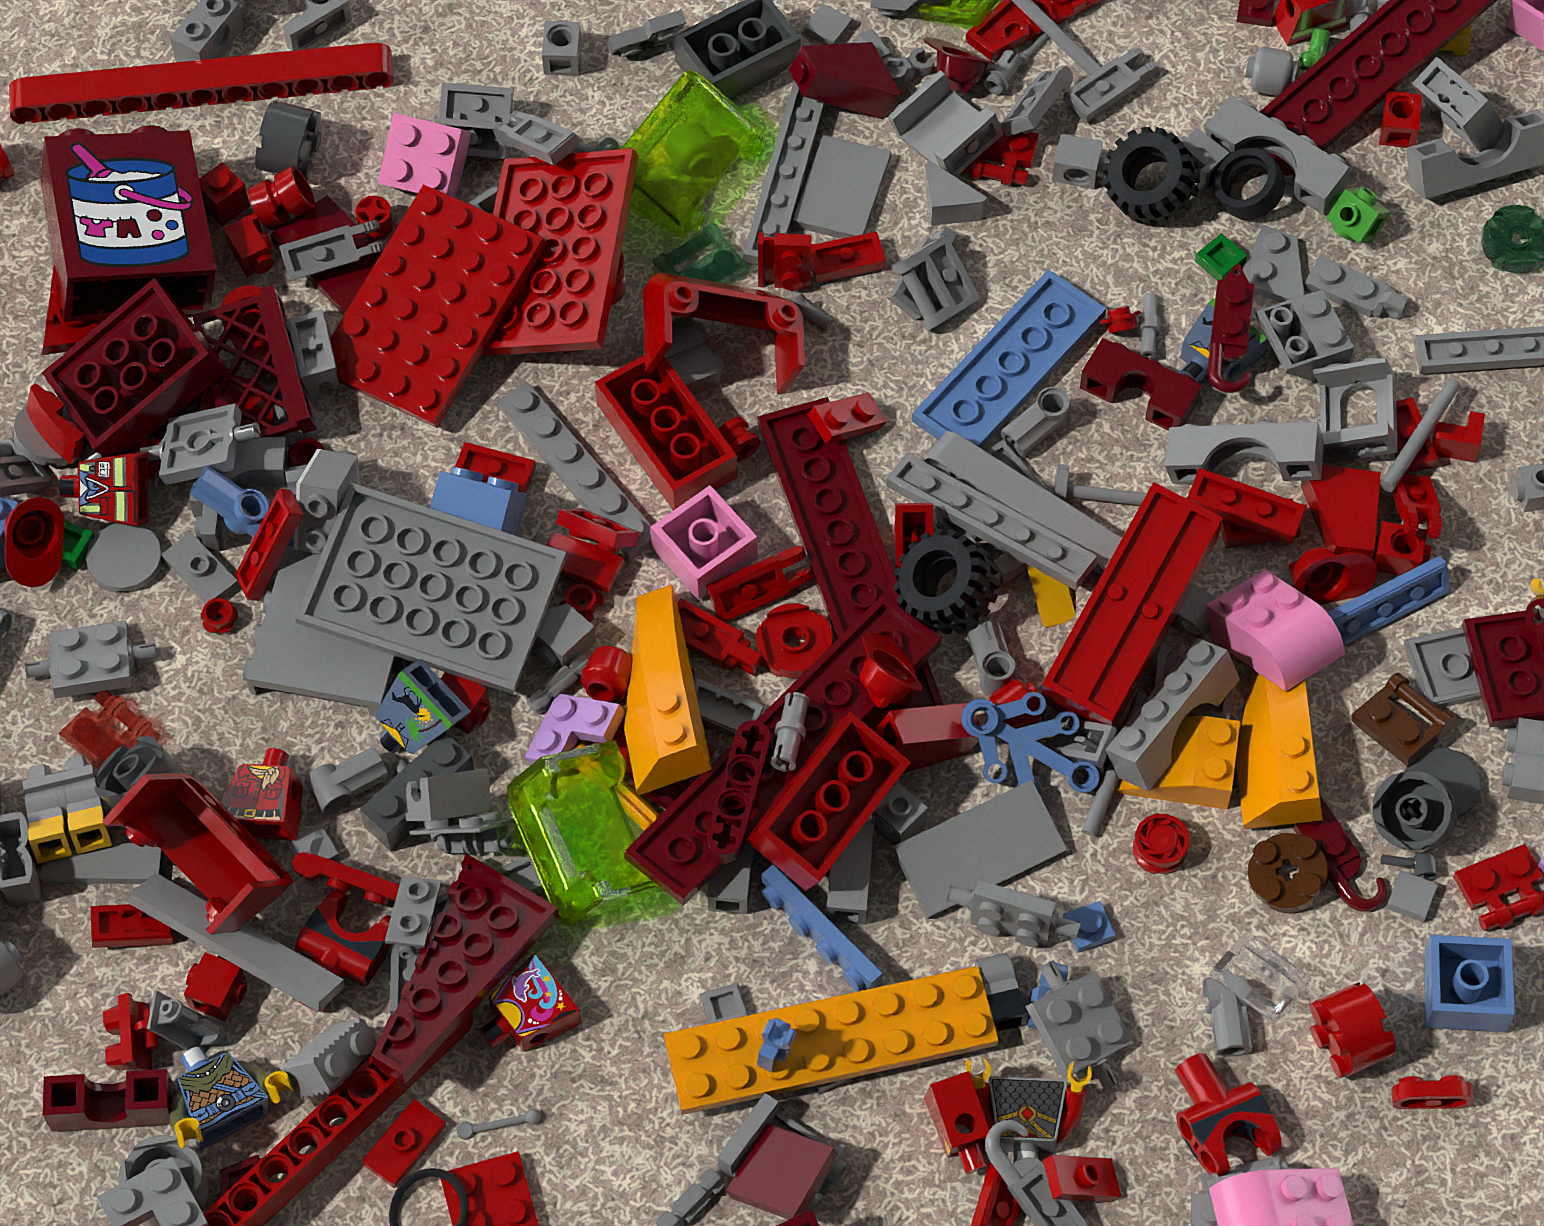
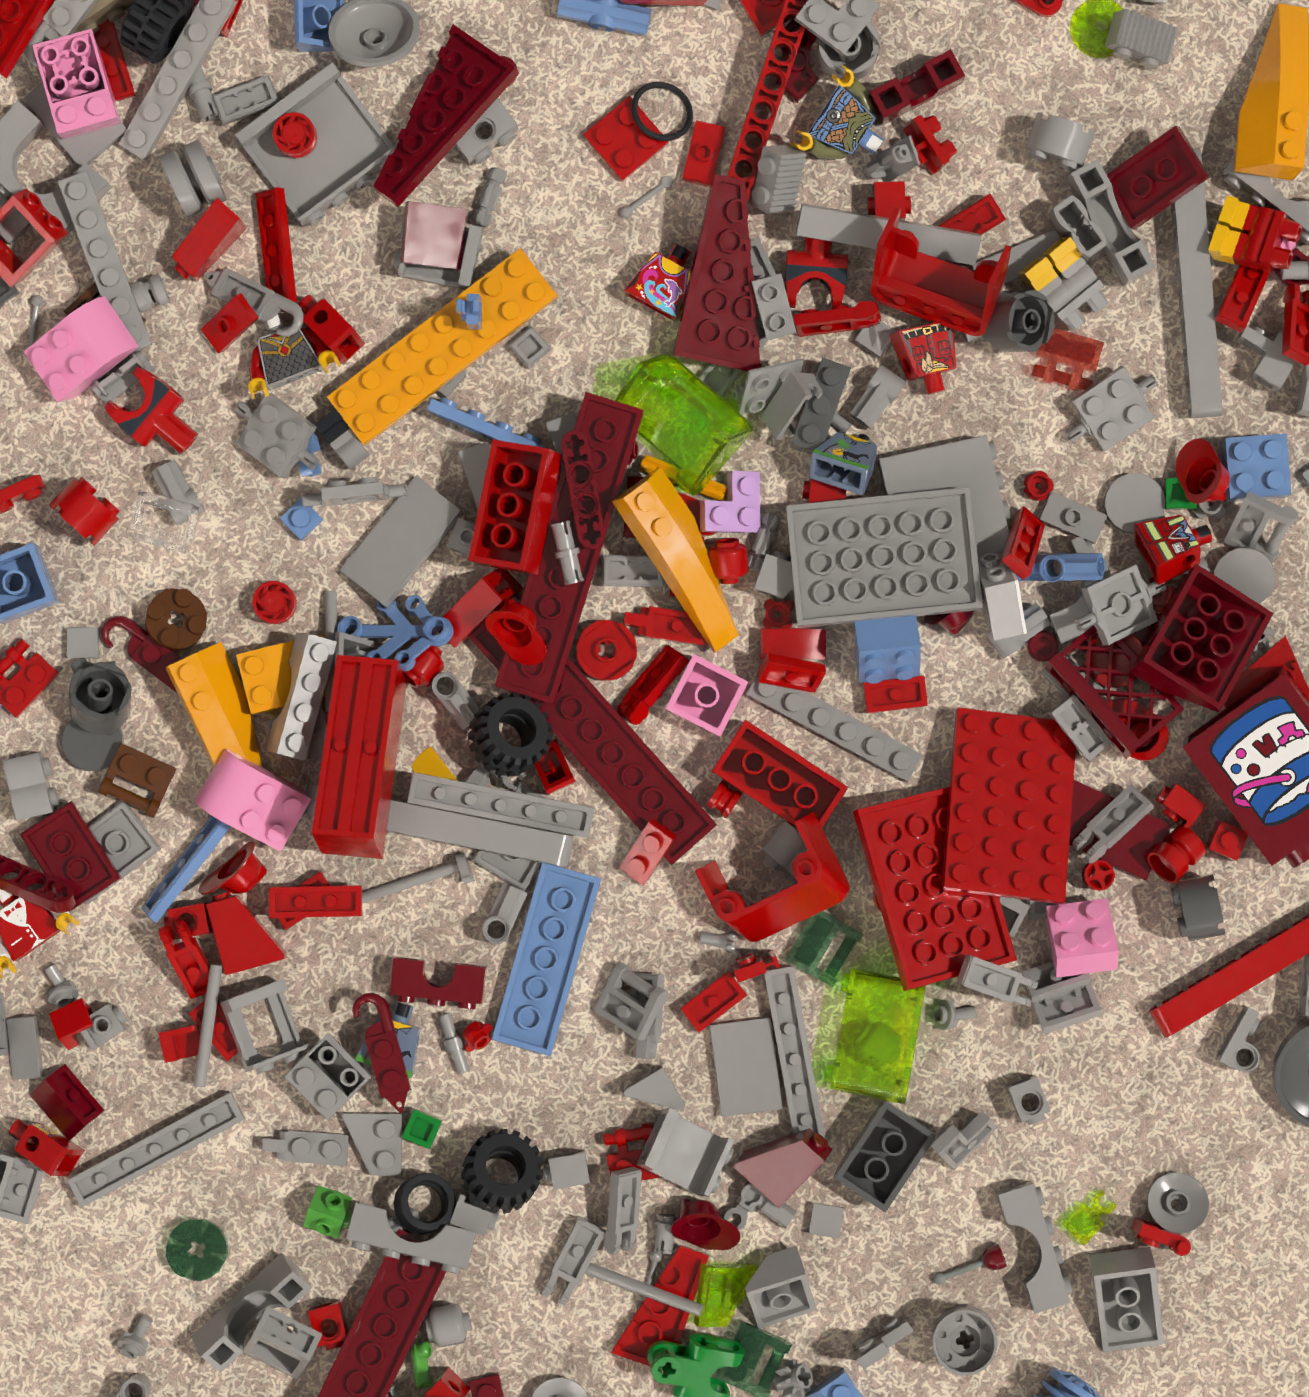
camera: 155 degrees right, 25 degrees up
(46, 415) = (1250, 581): red slope -> none
(1290, 447) = (370, 936): light grey arch -> none

